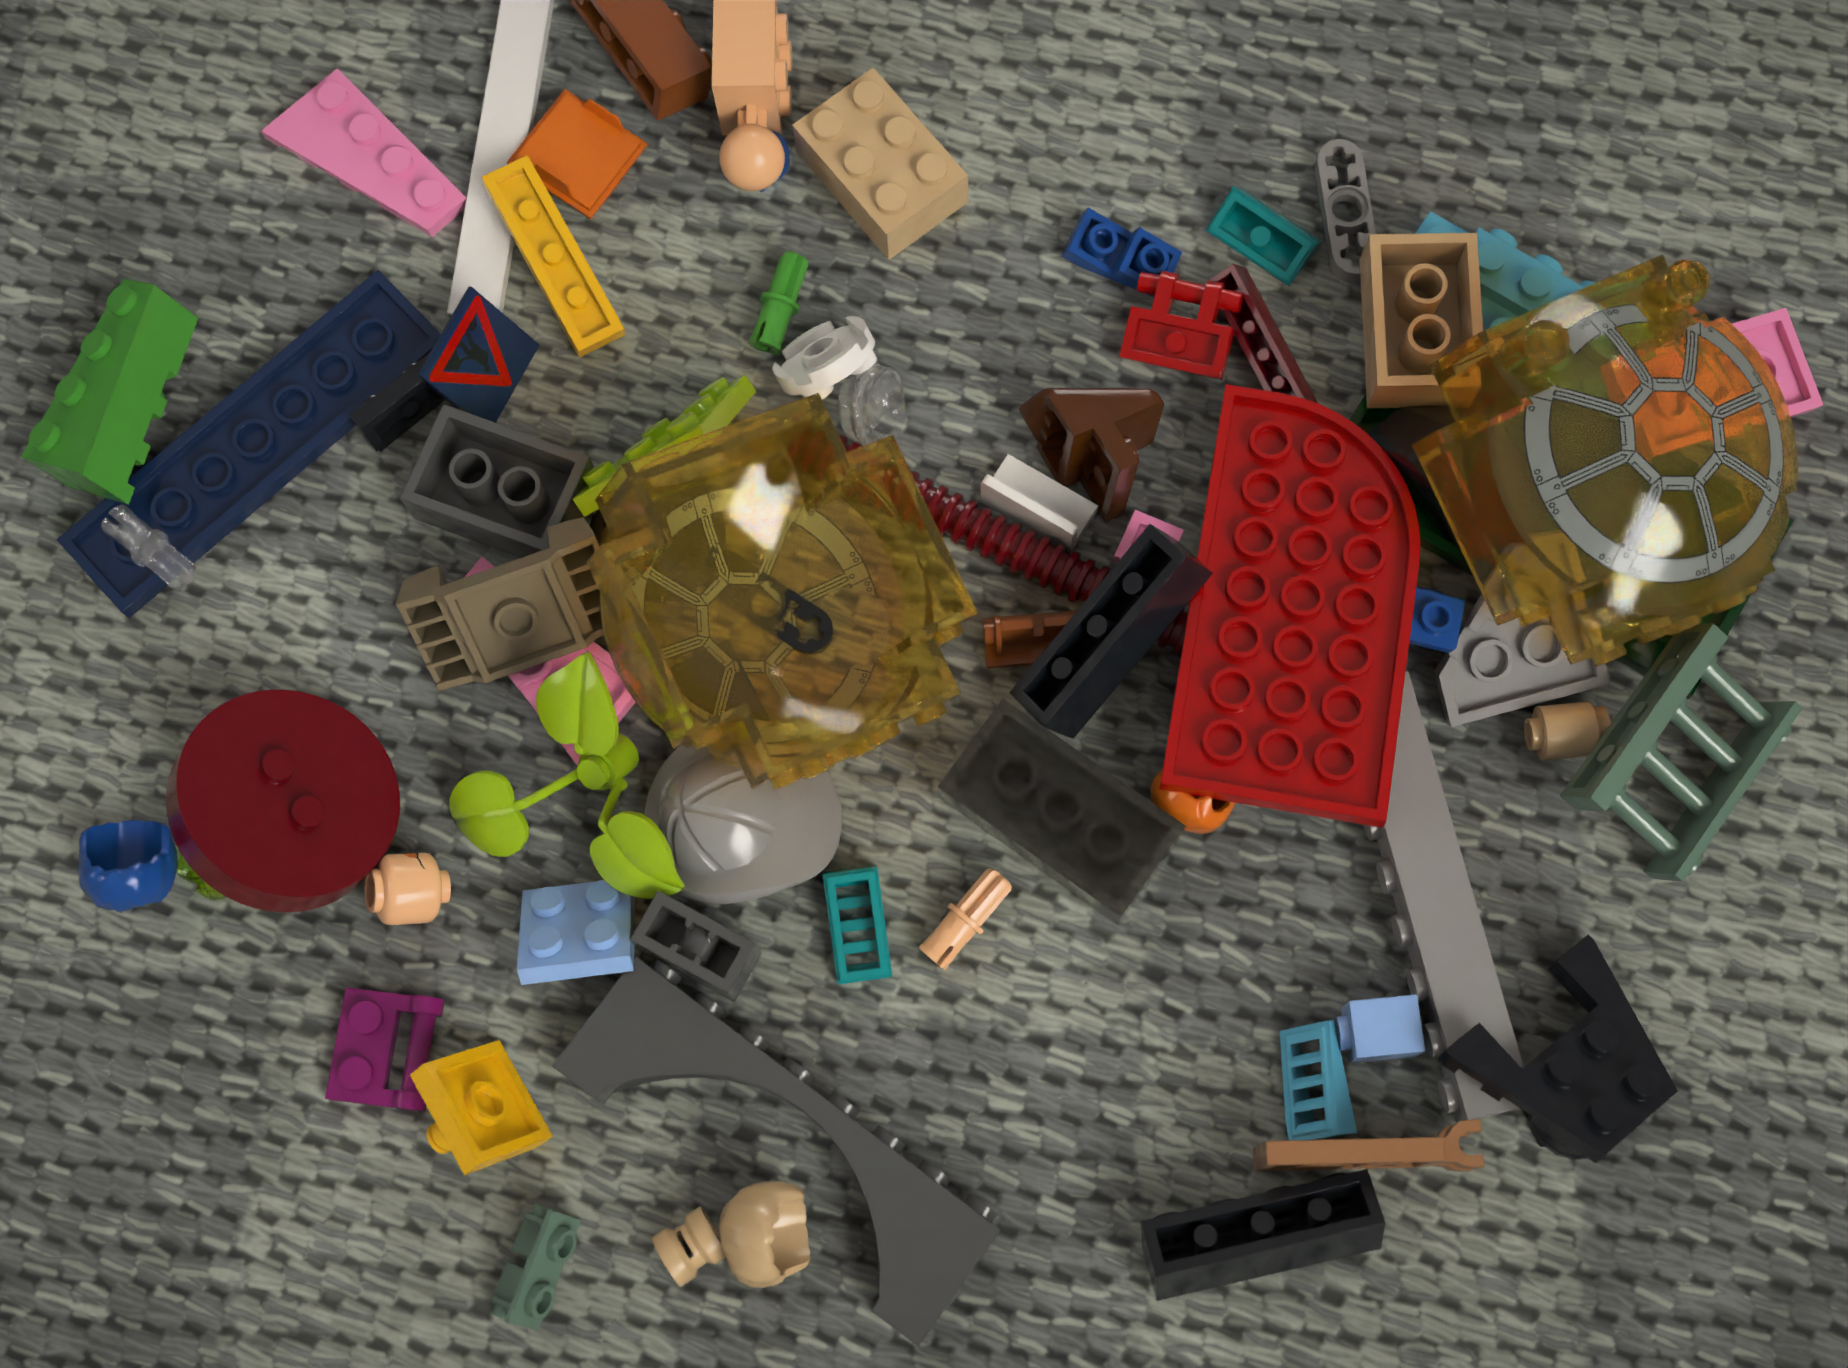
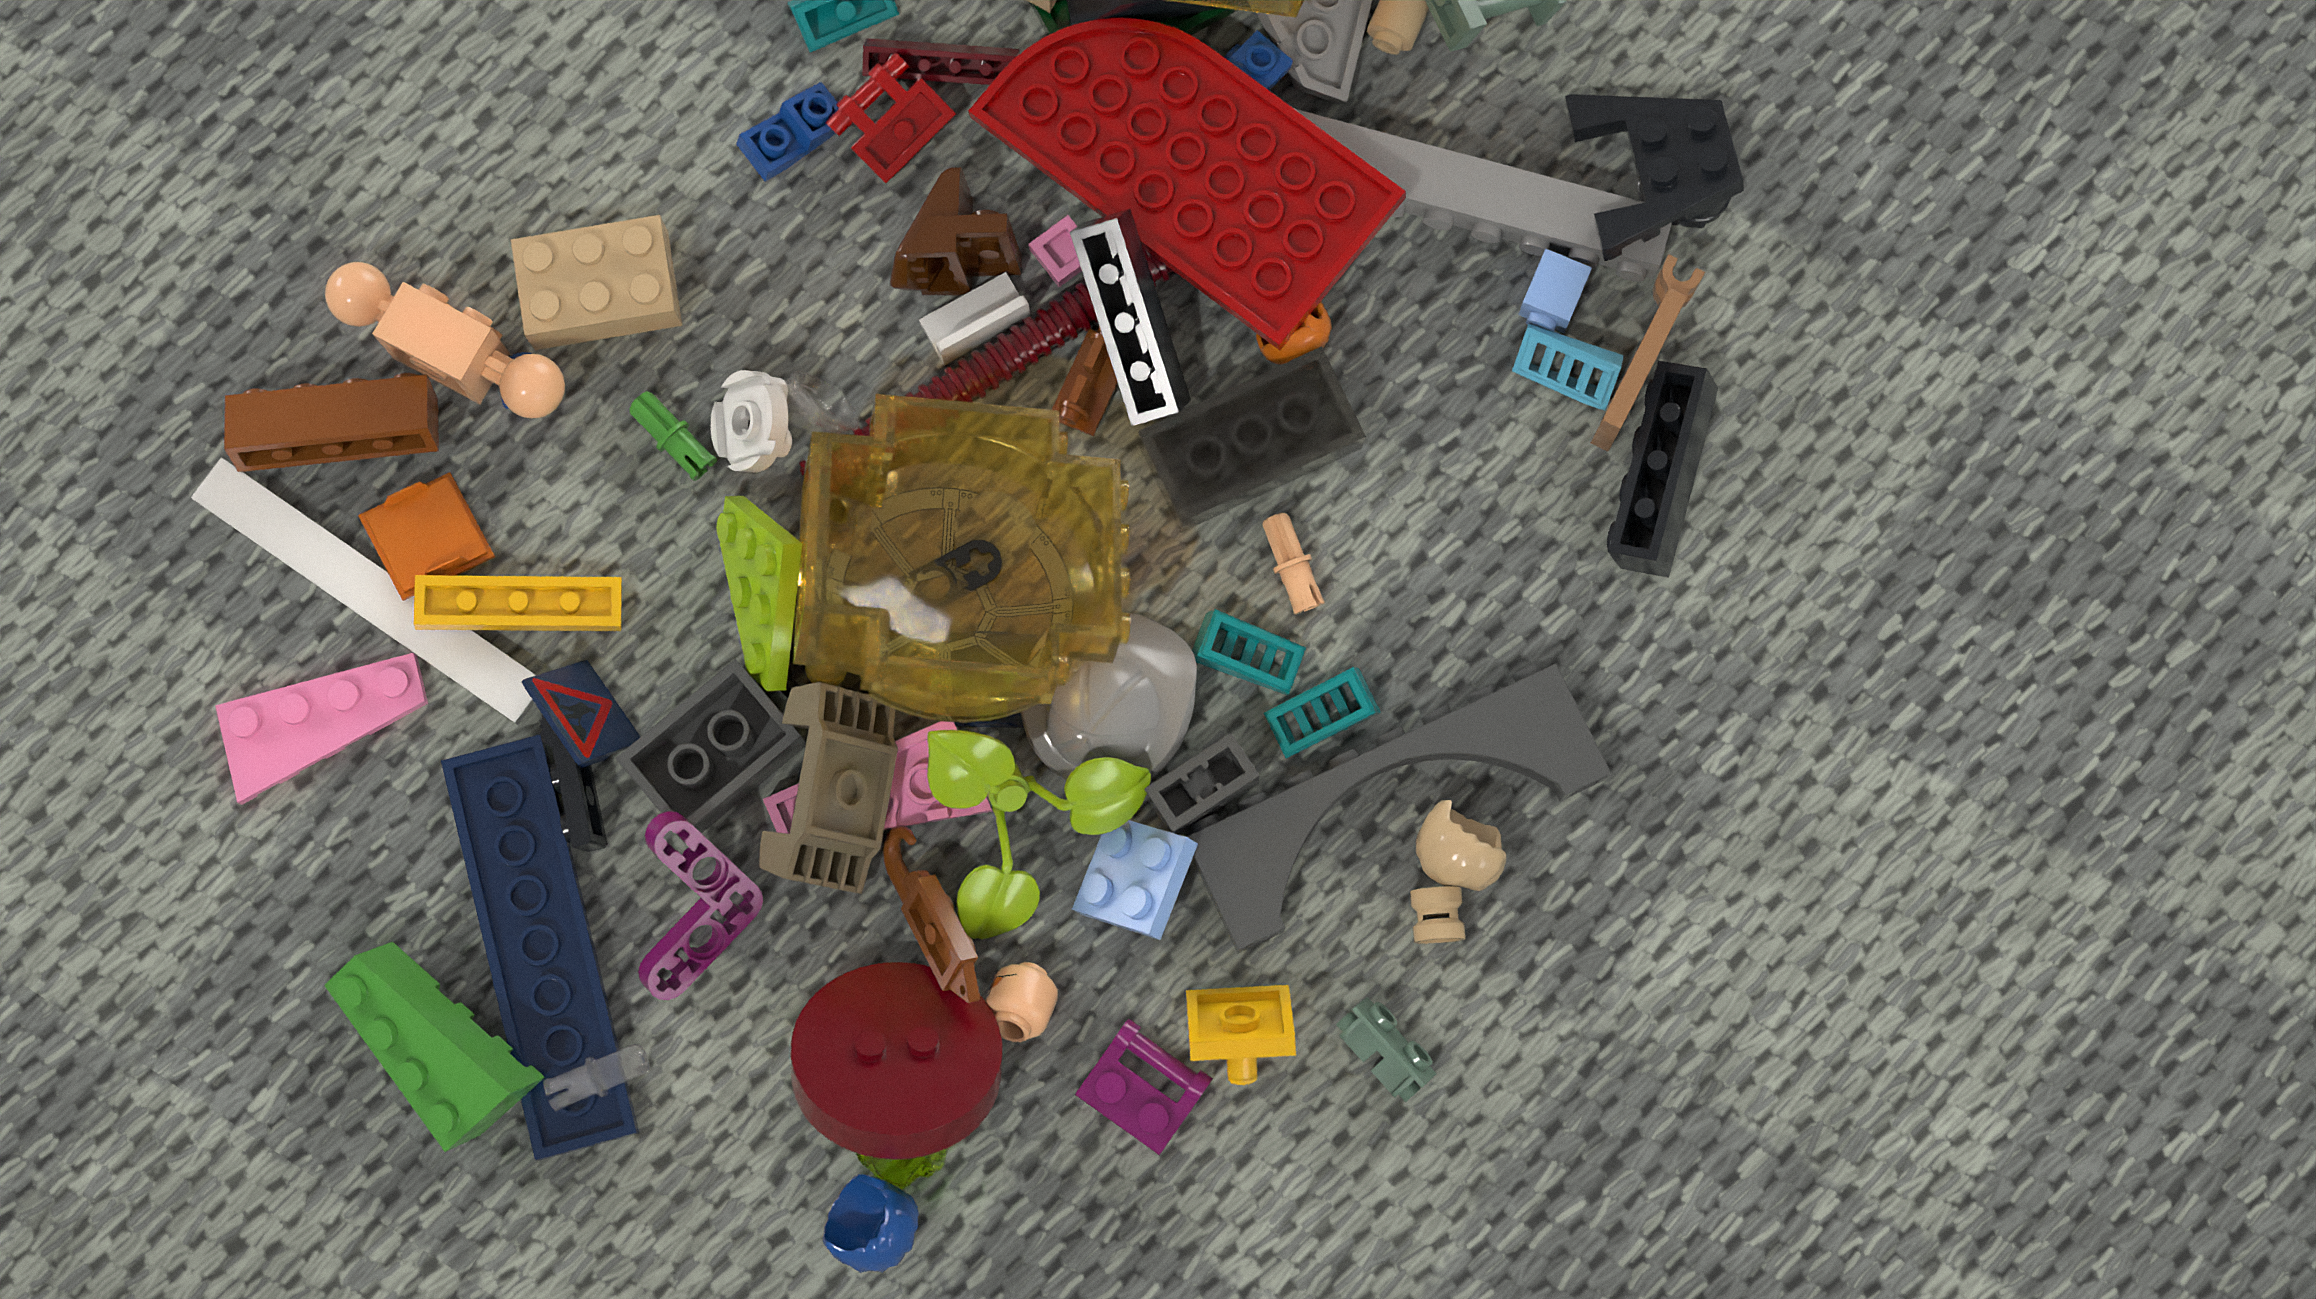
camera: 65 degrees left, 5 degrees up
(358, 564) = (714, 896): none -> magenta beam
(442, 765) = (932, 920): none -> dark orange plate
(875, 1051) = (1361, 692): none -> teal slope

